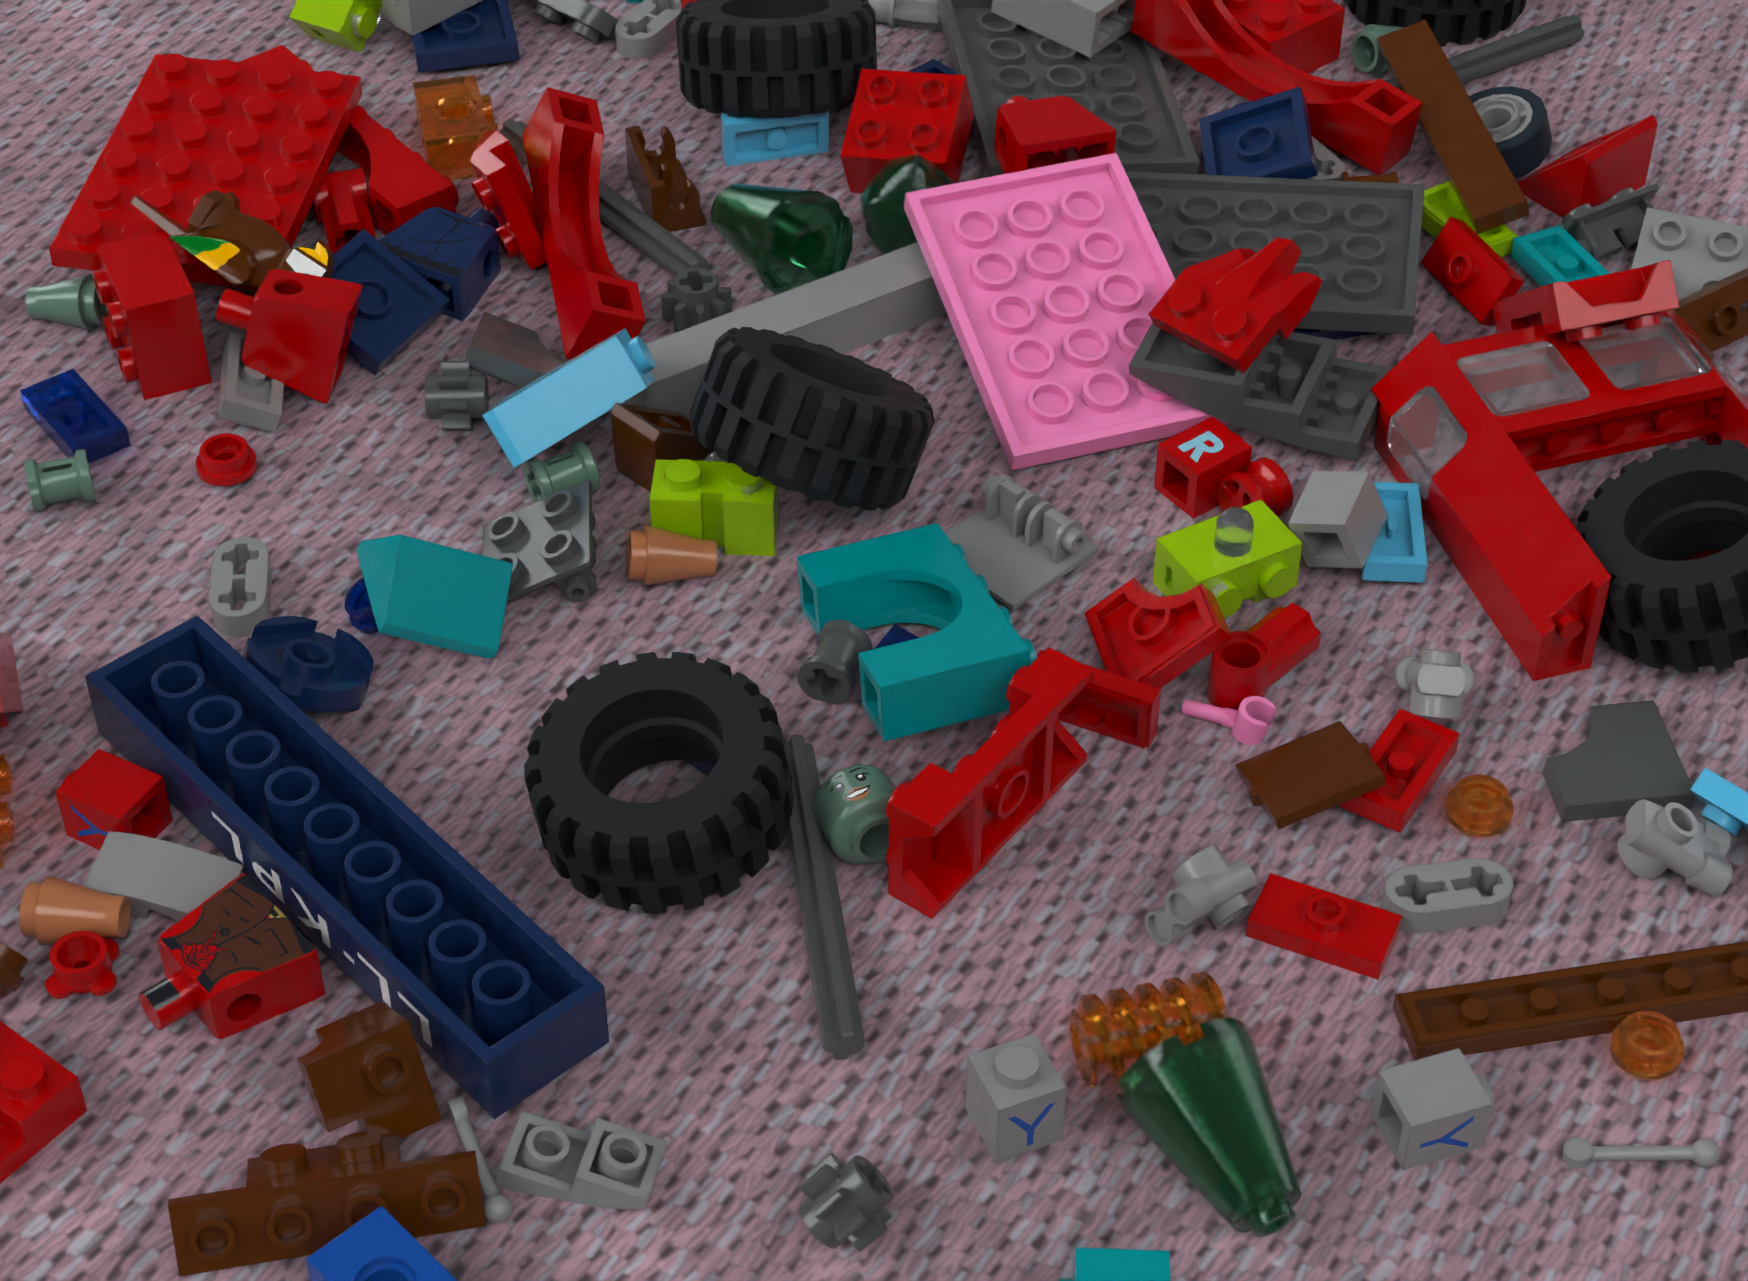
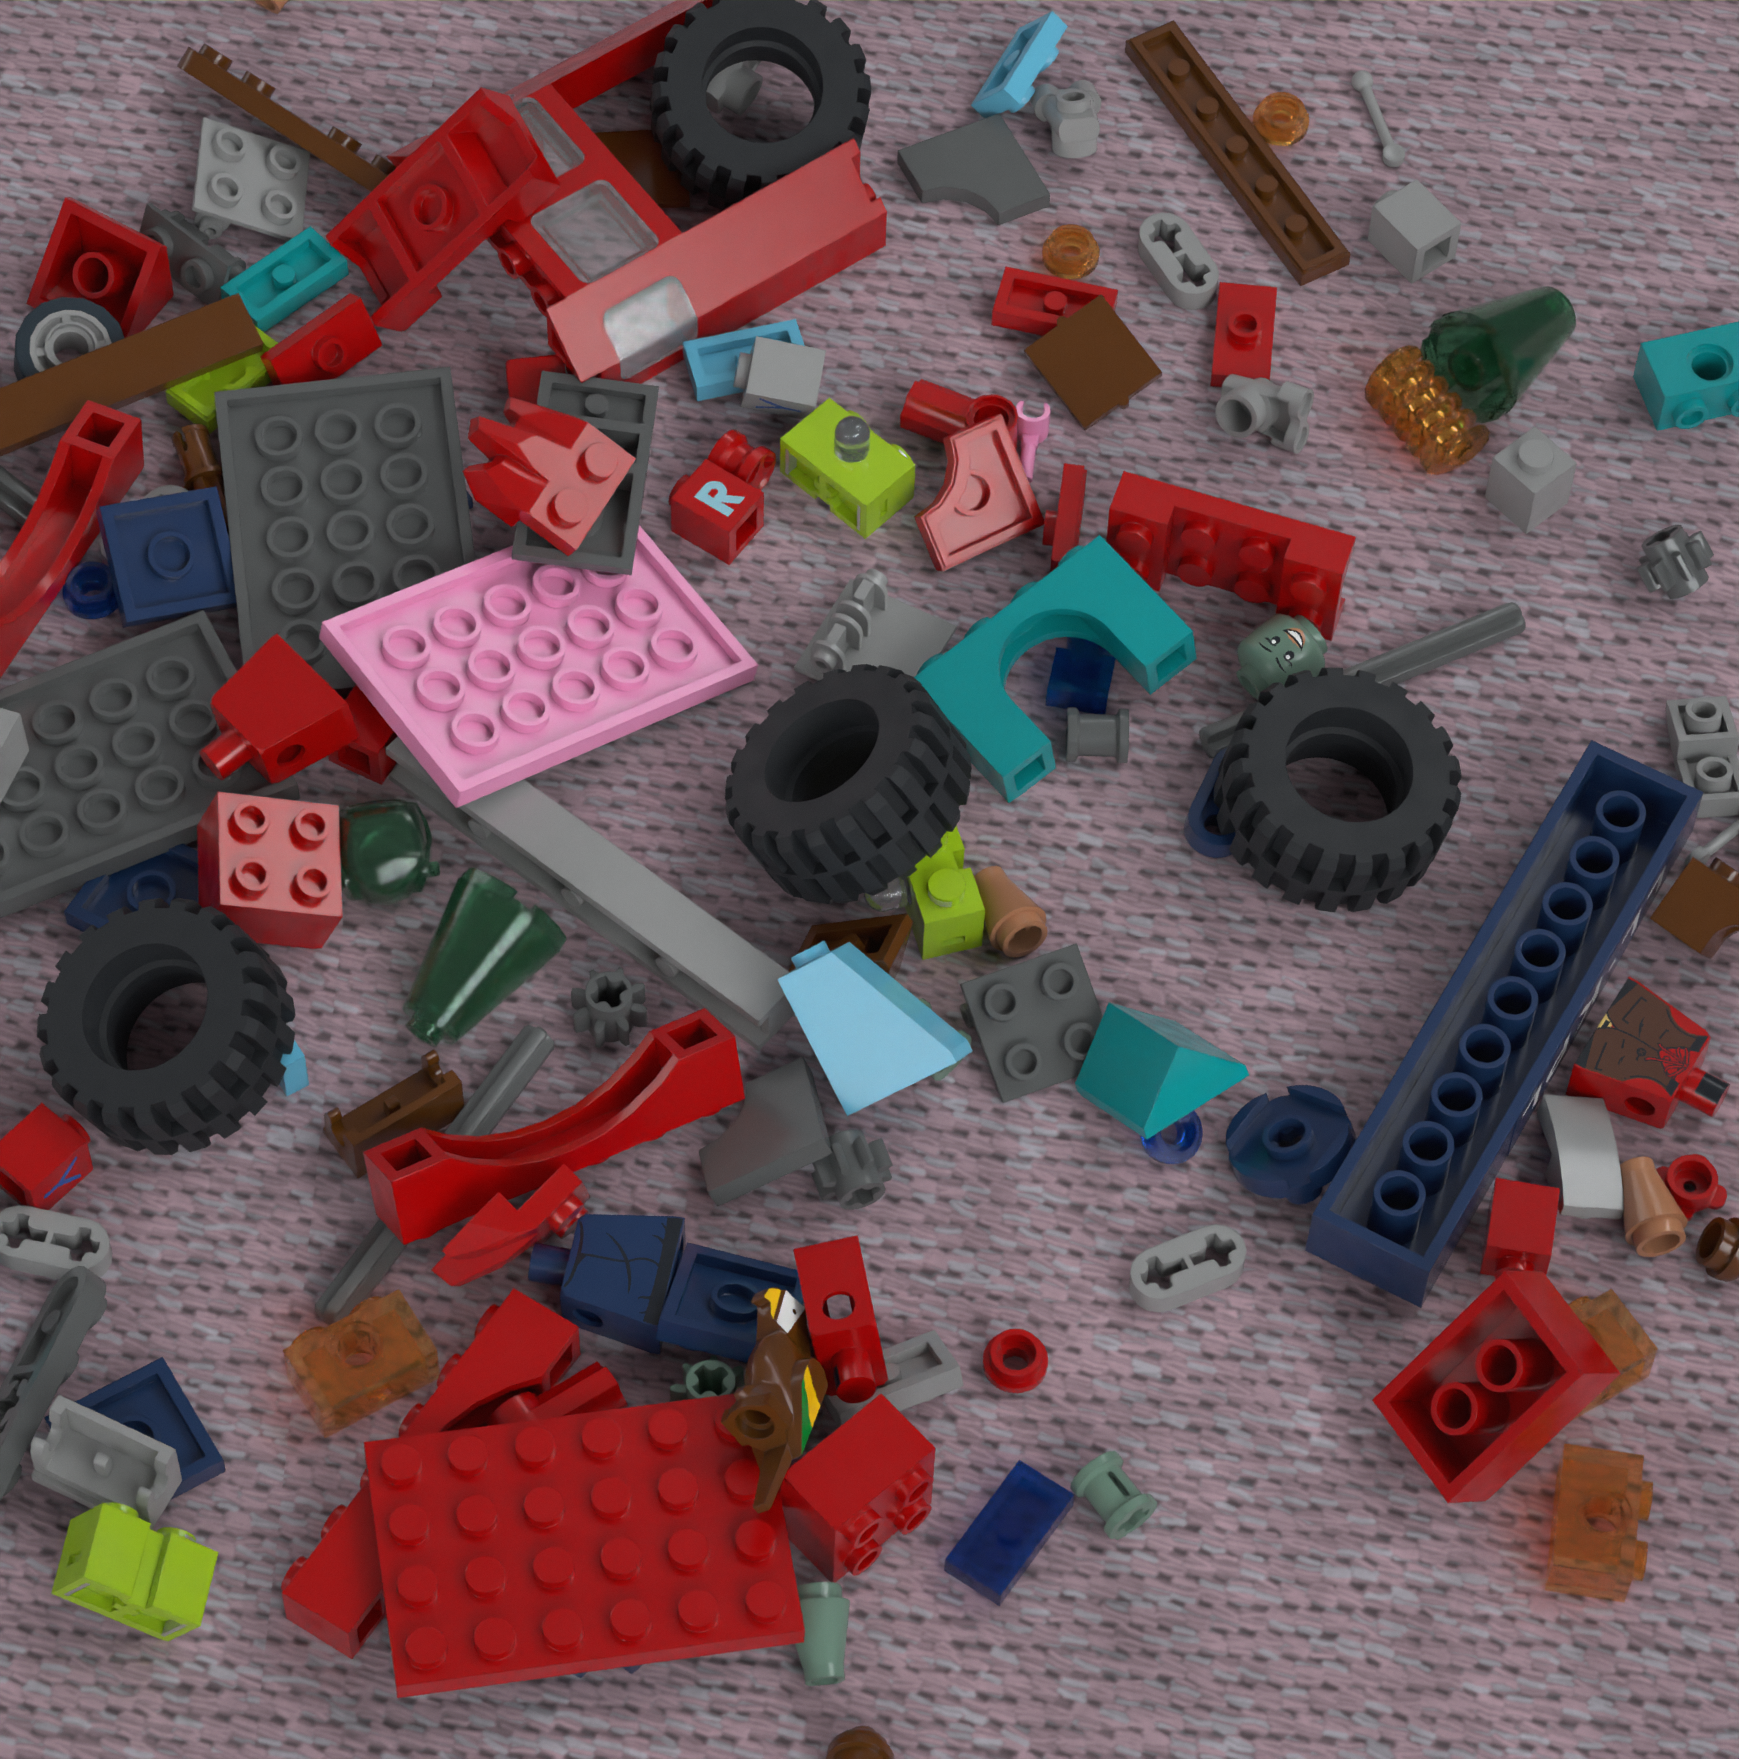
camera: 110 degrees left, 15 degrees up
(1435, 682) = (951, 285): light grey plate -> none

